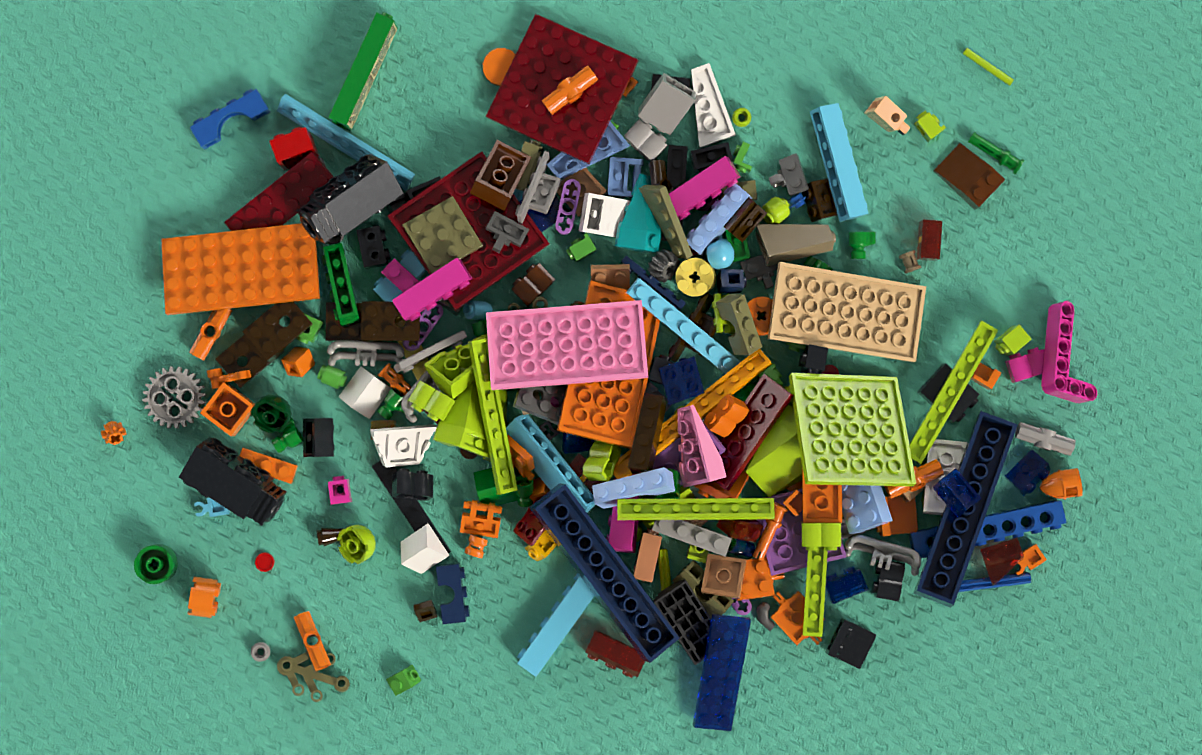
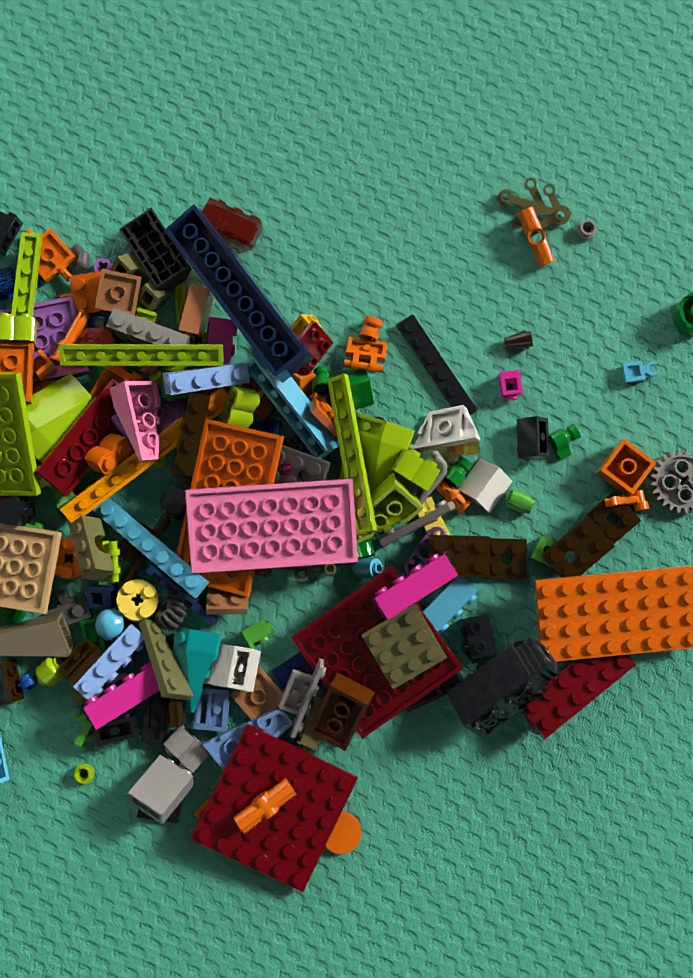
camera: 175 degrees left, 5 degrees down
(203, 342) = (652, 538): orange piece -> none
(203, 597) = (646, 278): orange brick -> none
(209, 129) = (654, 765): blue arch -> none
(232, 481) = (620, 392): black piece -> none
(264, 562) = (584, 317): red piece -> none
(271, 413) = (581, 463): dark green cylinder -> none
(277, 468) = (584, 412): orange plate -> none
(293, 147) = (564, 745): red brick -> none
(298, 361) = (554, 517): orange panel -> none
(338, 137) = (515, 755): medium azure plate -> none
(340, 280) = (511, 596): green brick -> none
(356, 543) = (491, 330): lime cylinder -> none
(363, 71) = (489, 830): green brick -> none
(365, 352) = (485, 525): light grey piece -> none
(399, 275) = (448, 603): dark pink plate -> none
(403, 680) = (443, 199): bright green bracket -> none
(412, 485) = (435, 388): black brick -> none
(422, 550) = (425, 324): white slope -> none
(425, 611) = (422, 266): dark brown plate -> none
(452, 576) = (396, 299): dark blue arch -> none
(506, 231) = (336, 649): dark grey hinge -> none
(532, 284) = (309, 595): reddish brown brick -> none
(556, 627) = (292, 247): medium azure brick -> none
(575, 194) = (262, 691): medium lavender beam -> none
(681, 380) = (153, 490): clear blue hinge -> none
(710, 110) = (116, 779): white wing -> none
(721, 672) = (125, 201): clear blue plate -> none
(790, 175) = (33, 709): dark grey hinge -> none

